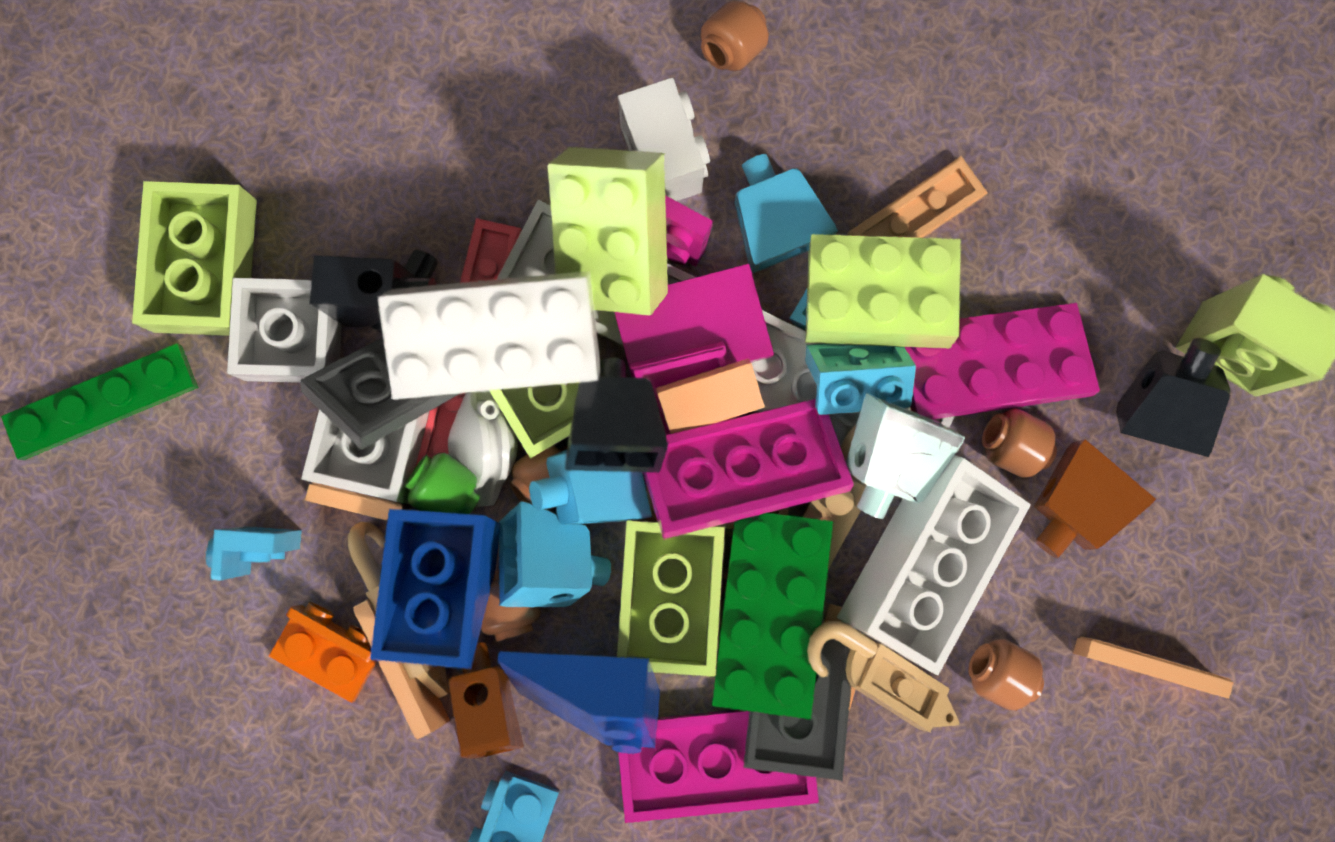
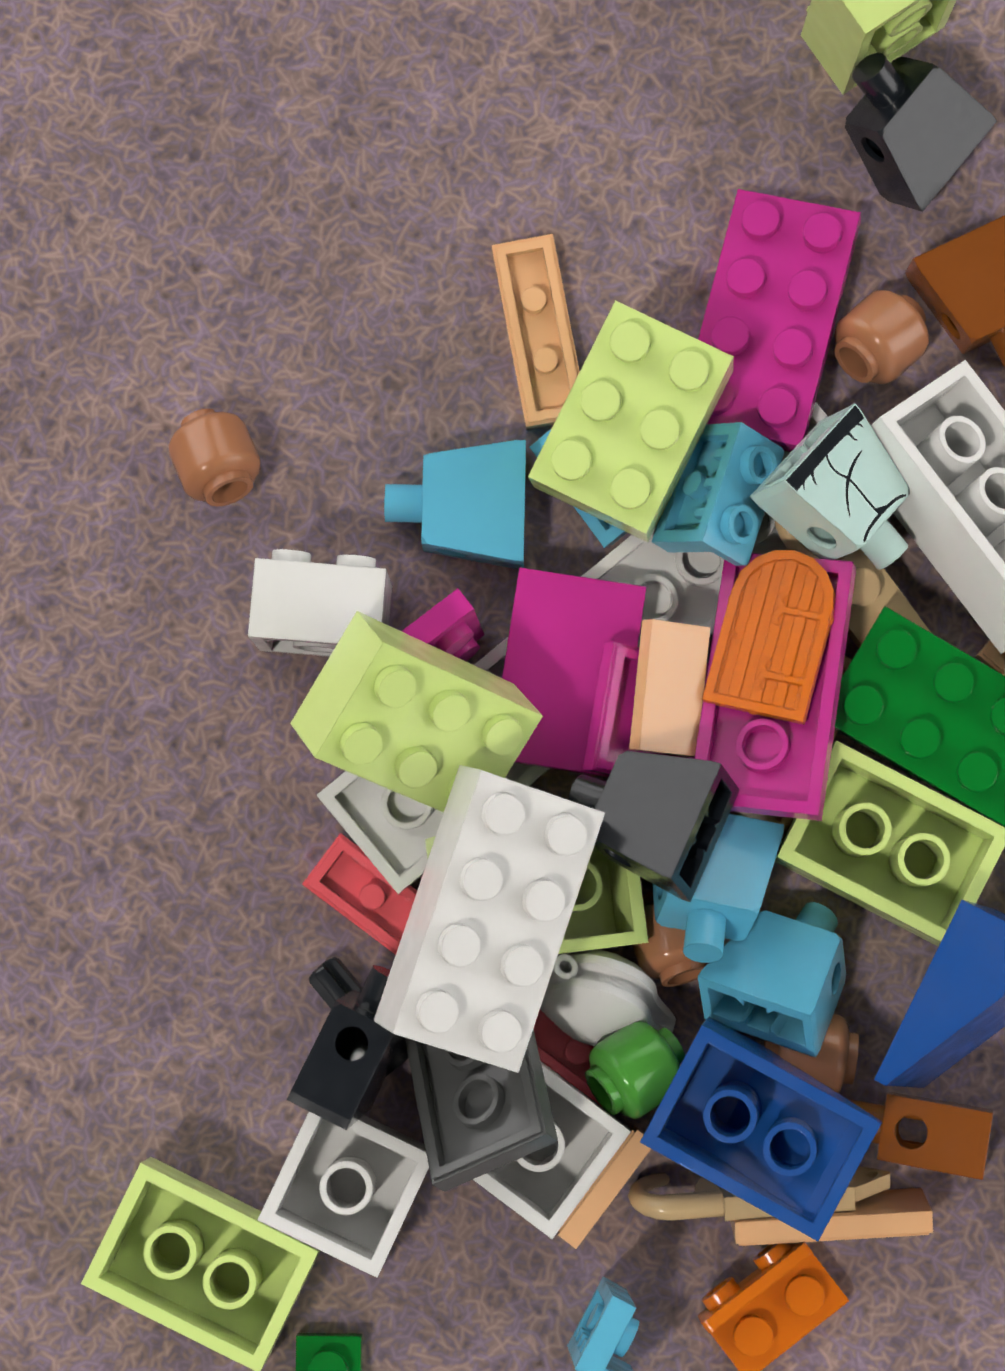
camera: 60 degrees left, 0 degrees up
(776, 452) = (773, 637): none -> orange window

